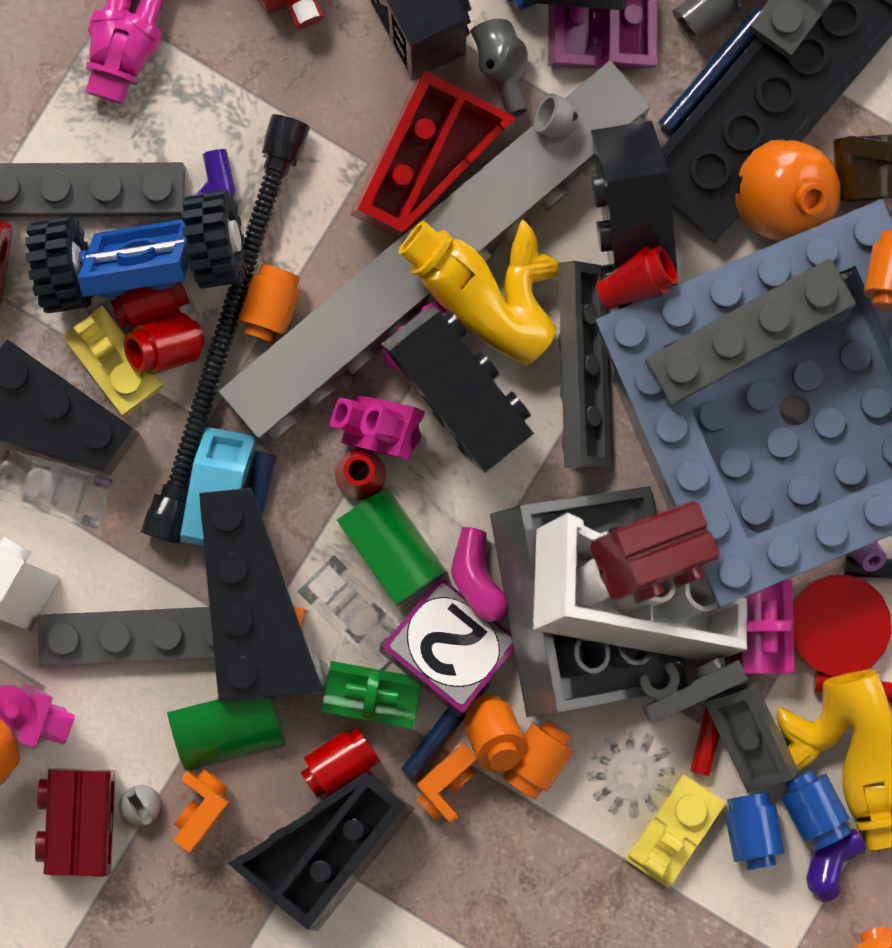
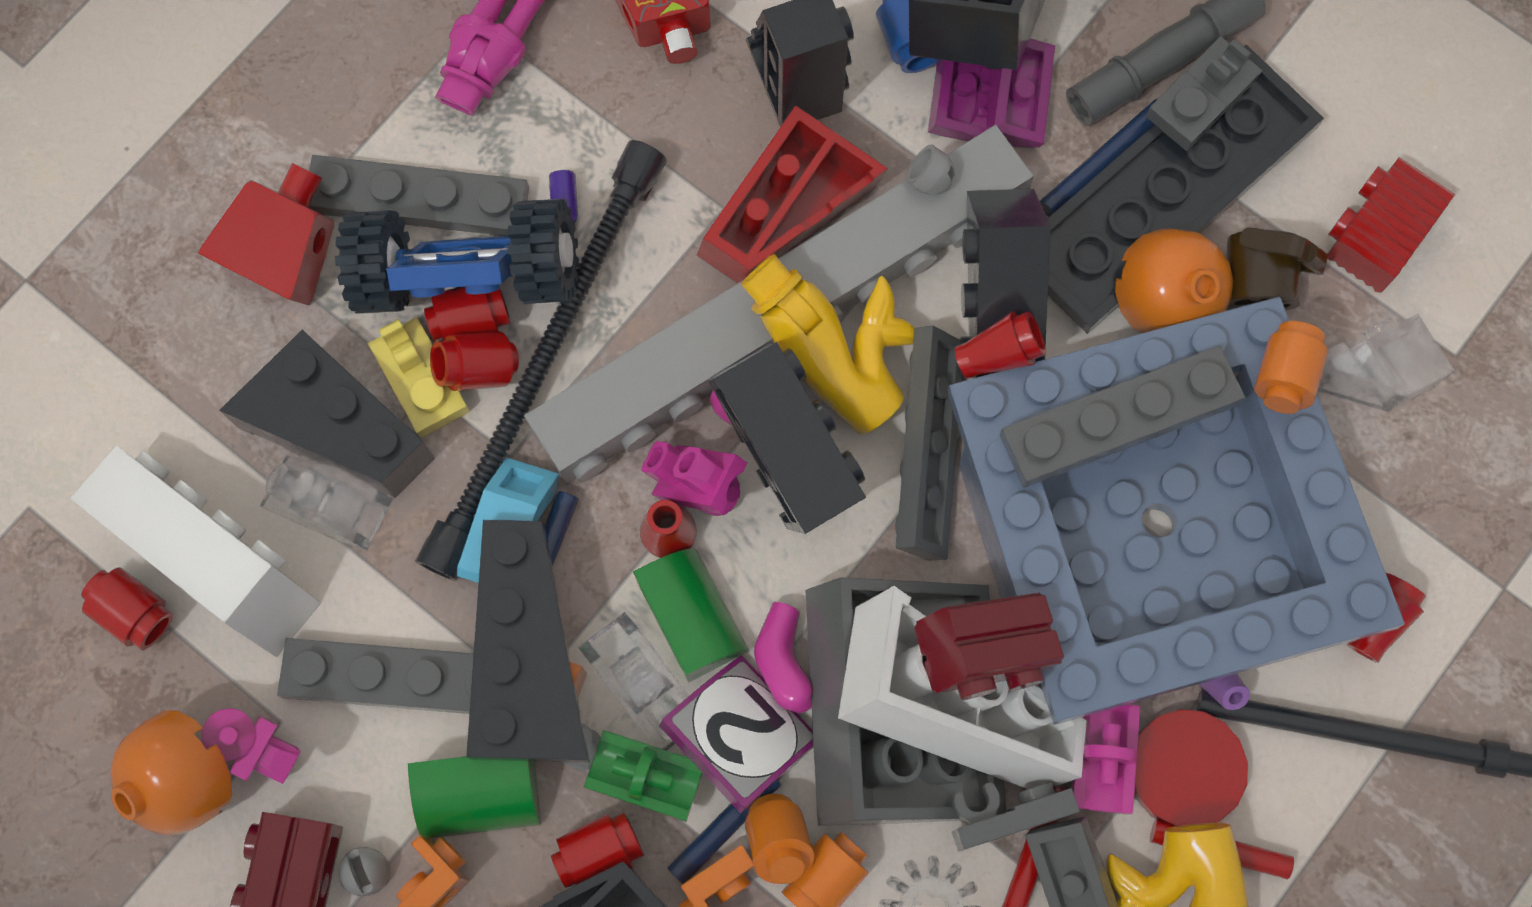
camera: 10 degrees right, 10 degrees down
(269, 303) = (595, 333): orange brick -> none
(502, 60) = (880, 114): dark grey piece -> none

